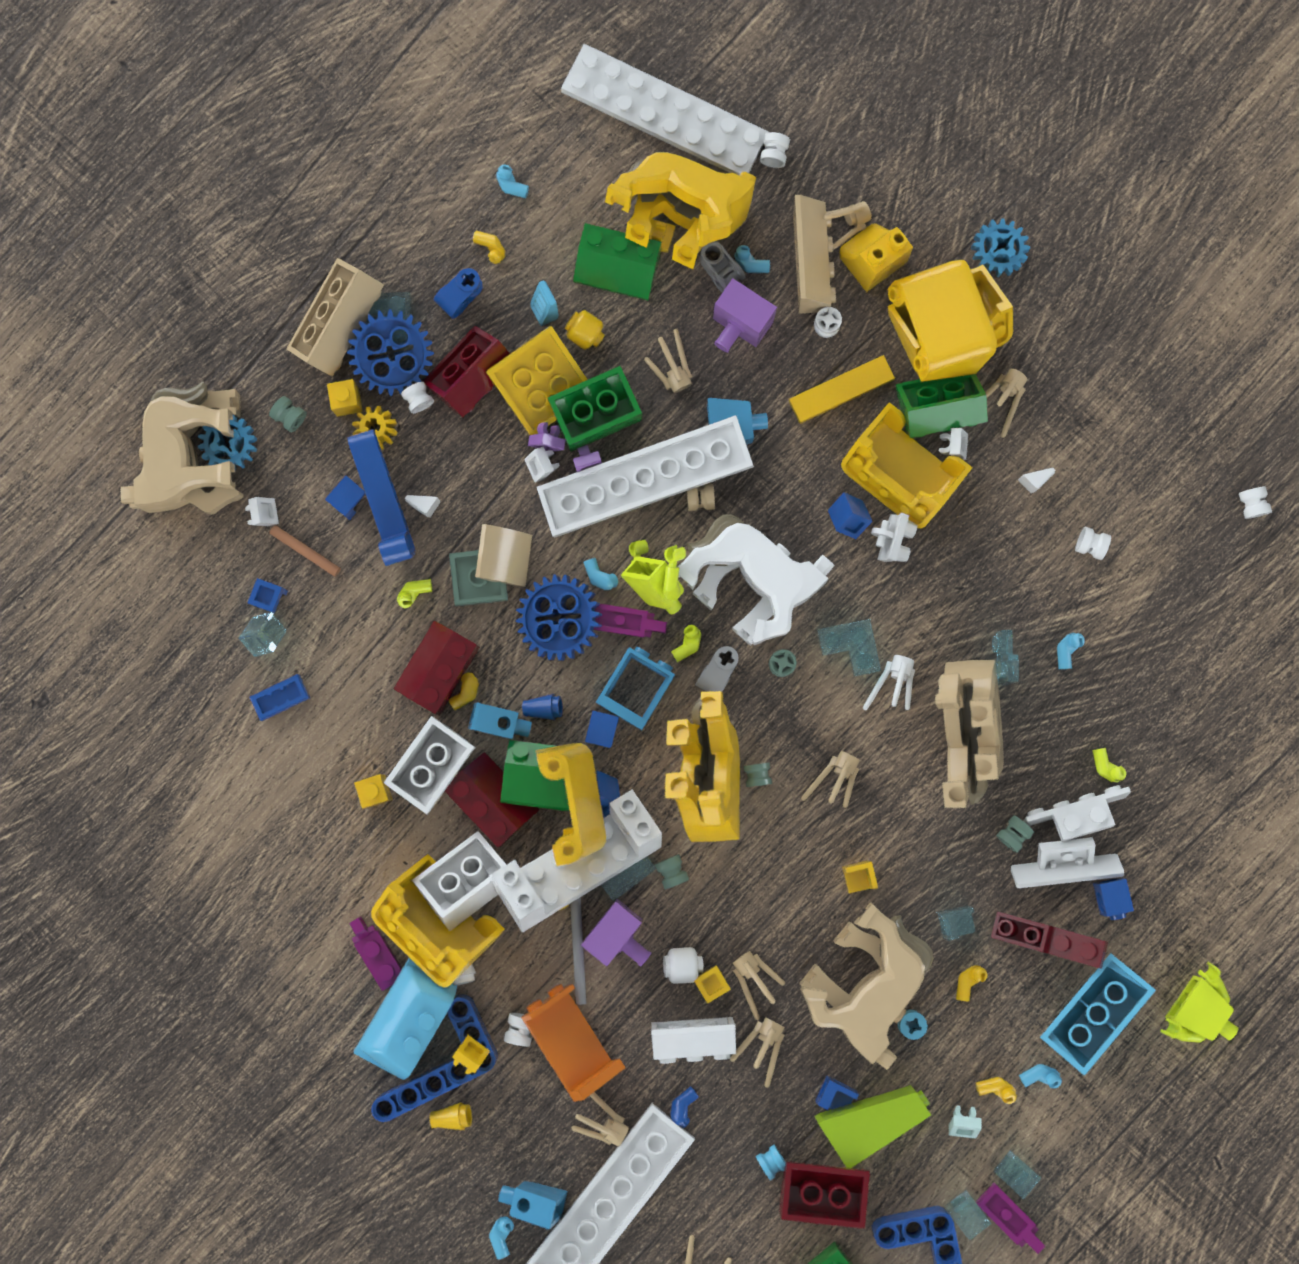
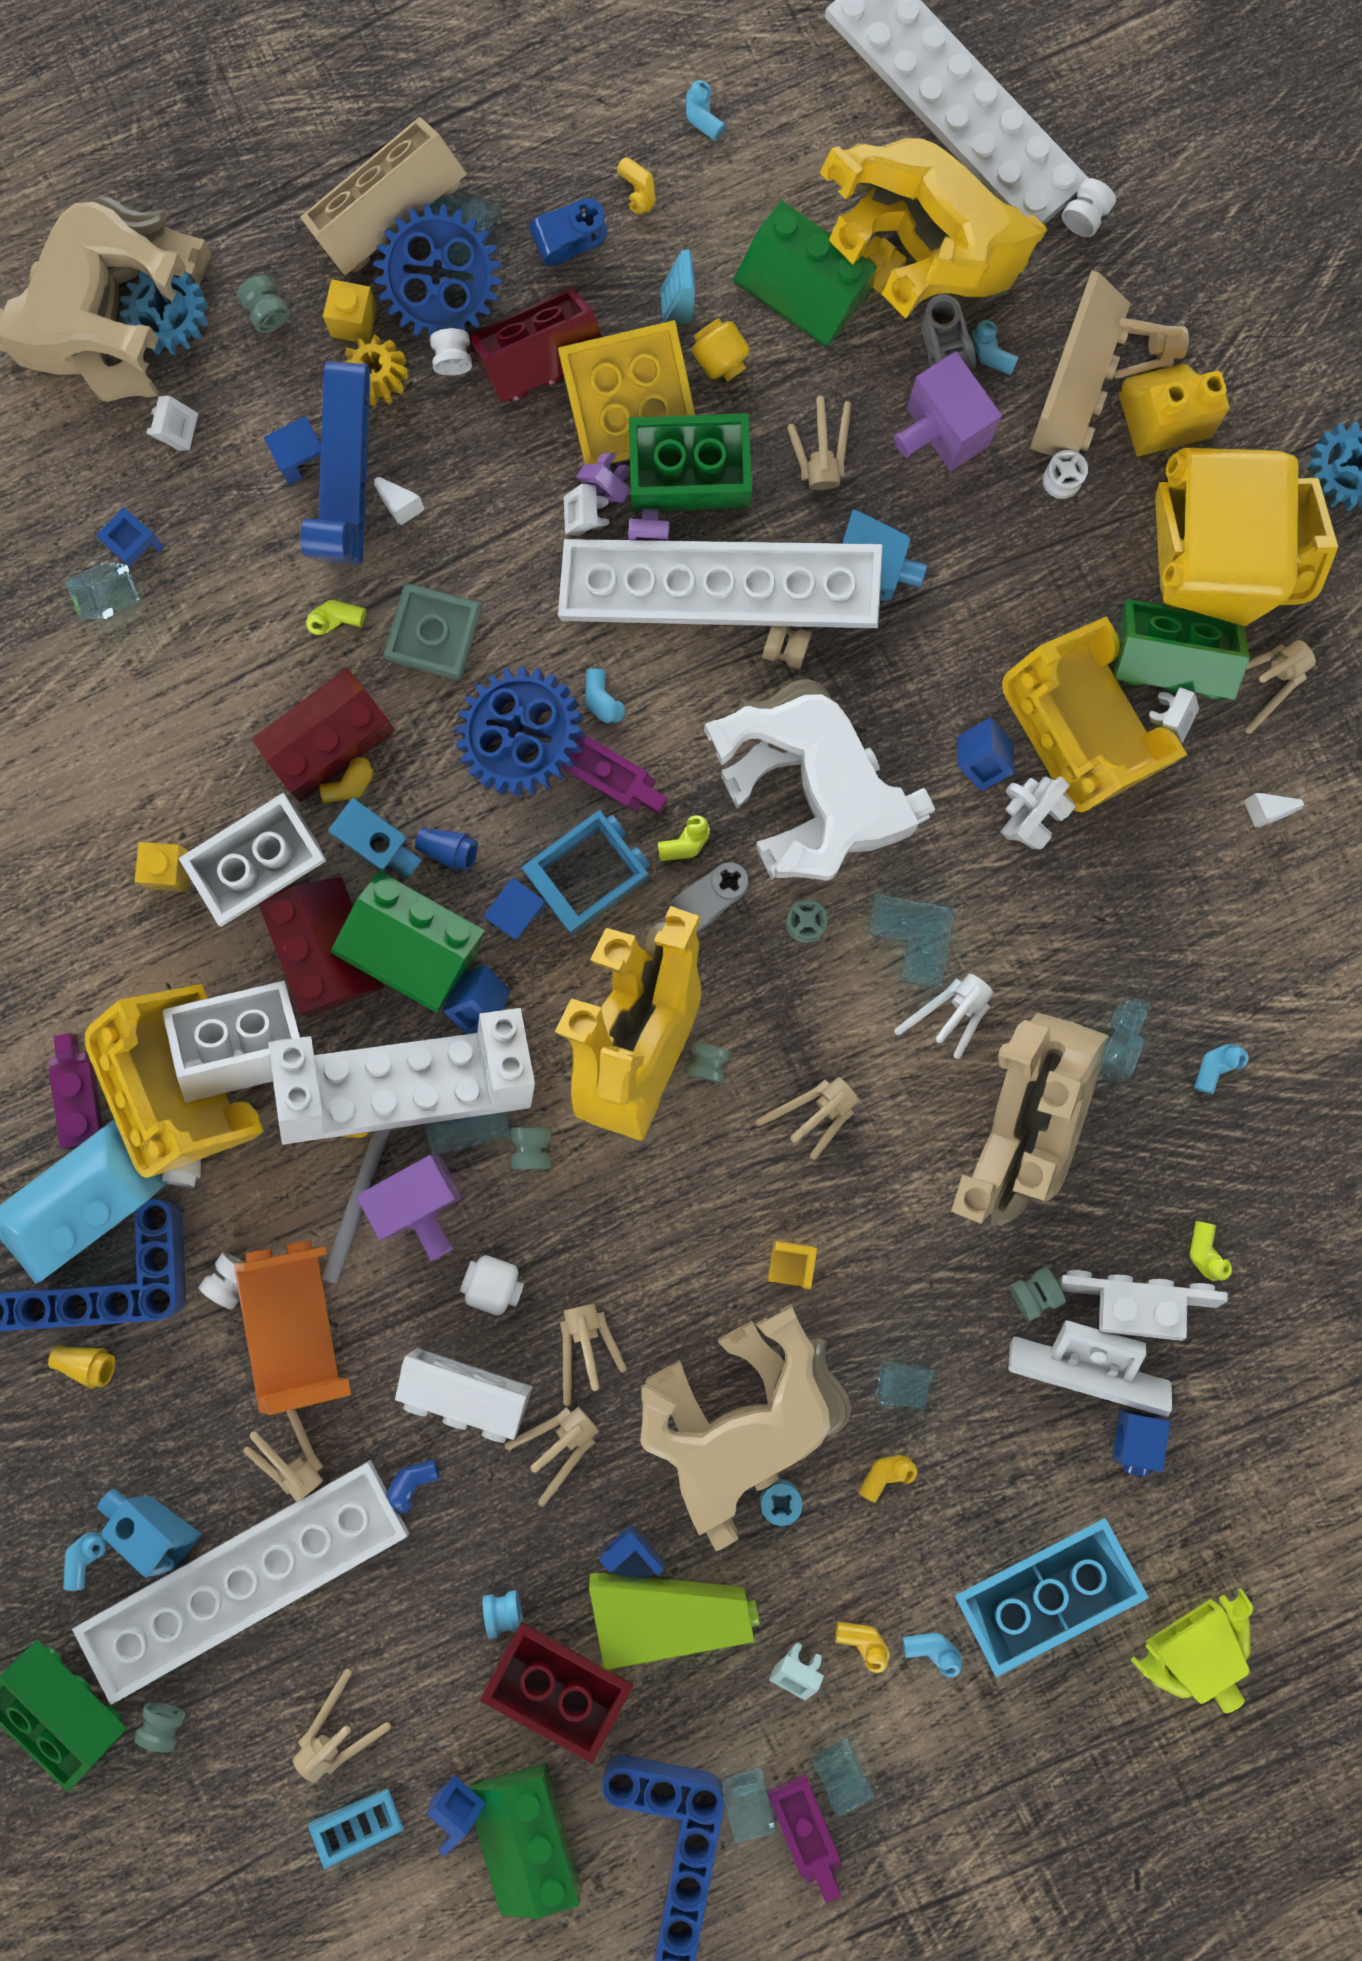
camera: 20 degrees right, 0 degrees up
(279, 697) = (90, 687): blue plate -> none
(304, 550) = (209, 501): nougat bar -> none
(470, 1054) = (139, 1286): yellow tile -> none
(503, 555) = (478, 614): tan slope -> none
(576, 766) = (440, 992): yellow windscreen -> none
(655, 579) = (676, 729): neon yellow torso -> none
(712, 984) = (521, 1328): yellow tile -> none
(841, 389) = (1046, 575): yellow tile -> none
(1049, 939) = (1025, 1463): dark red slope -> none
(1093, 543) = (1315, 930): white wheel -> none

